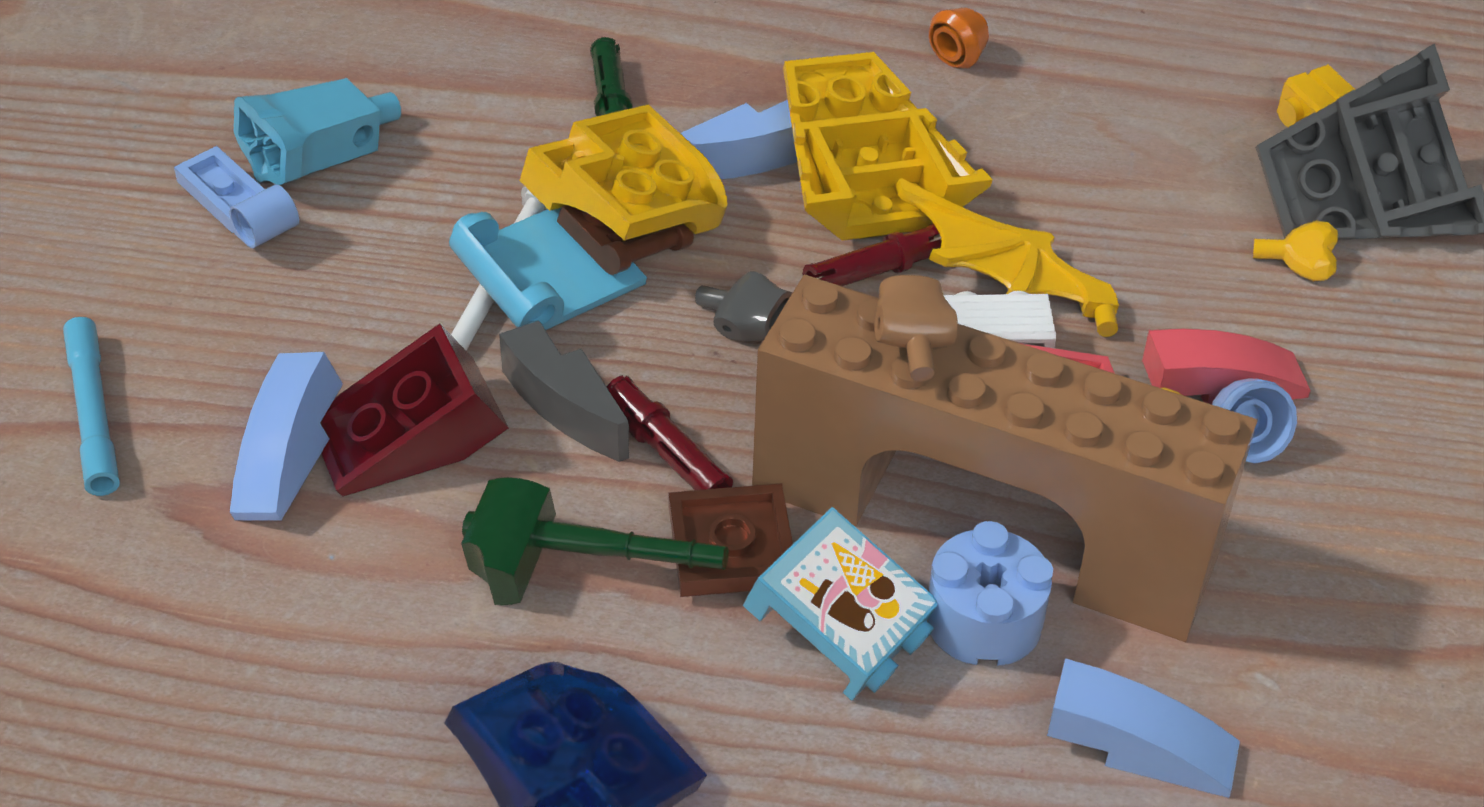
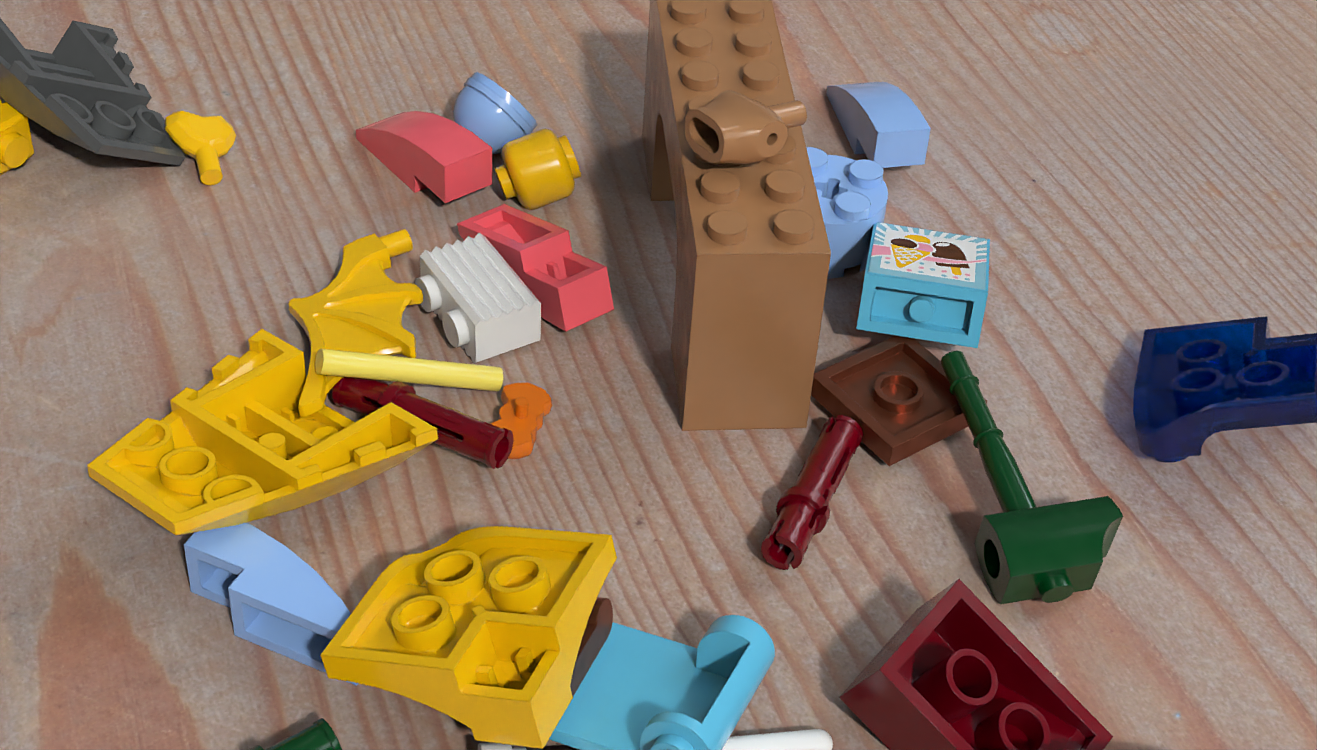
camera: 120 degrees left, 5 degrees down
(564, 390) = (817, 595): dark grey slope -> none
(747, 308) = (575, 485): dark grey piece -> none
(925, 231) = (408, 370): none -> light yellow bar

